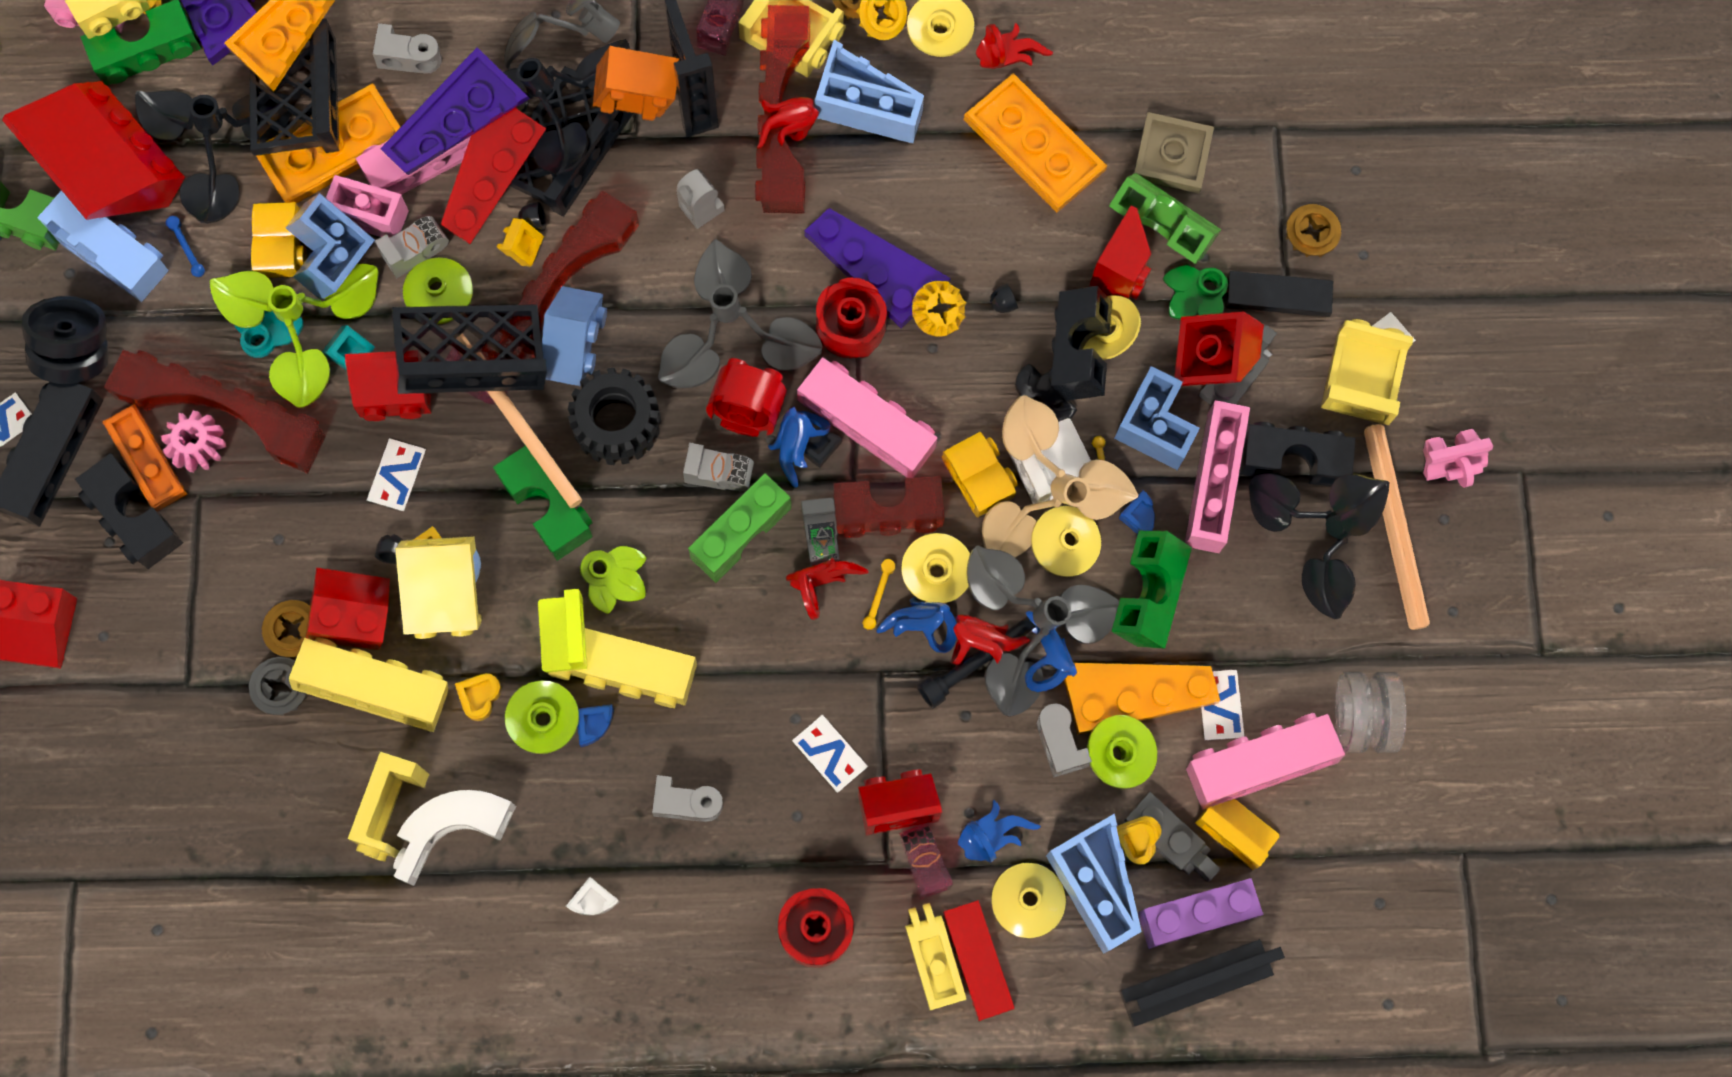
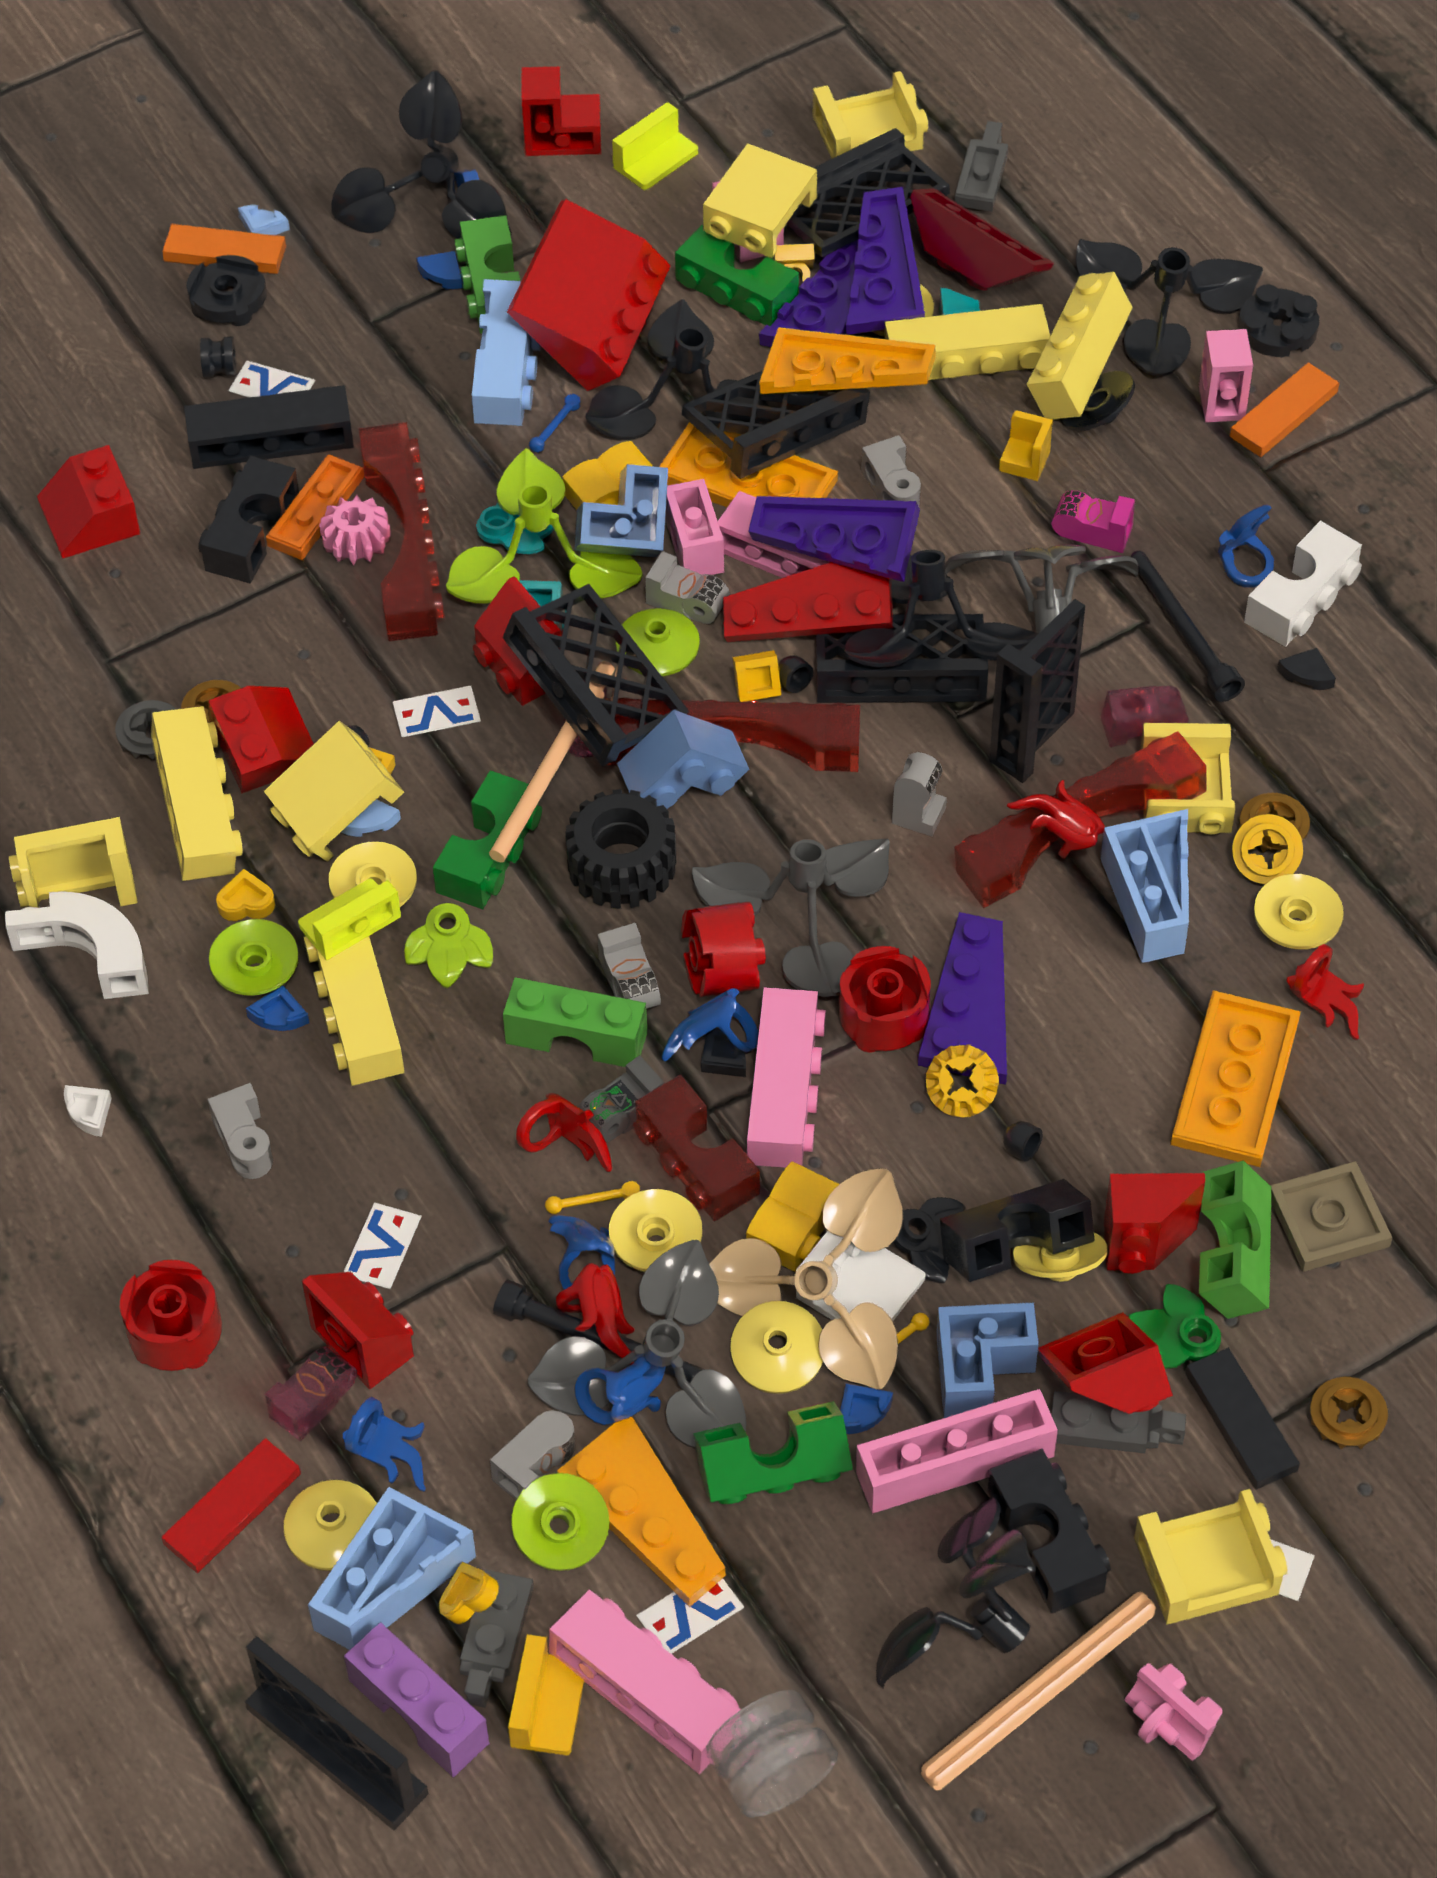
camera: 65 degrees right, 20 degrees down
(65, 339) = (384, 373): black wheel -> none
(513, 587) = (374, 861): none -> light yellow dish
(635, 82) = (972, 644): orange container -> none
(934, 959) = (206, 1456): light yellow hinge -> none

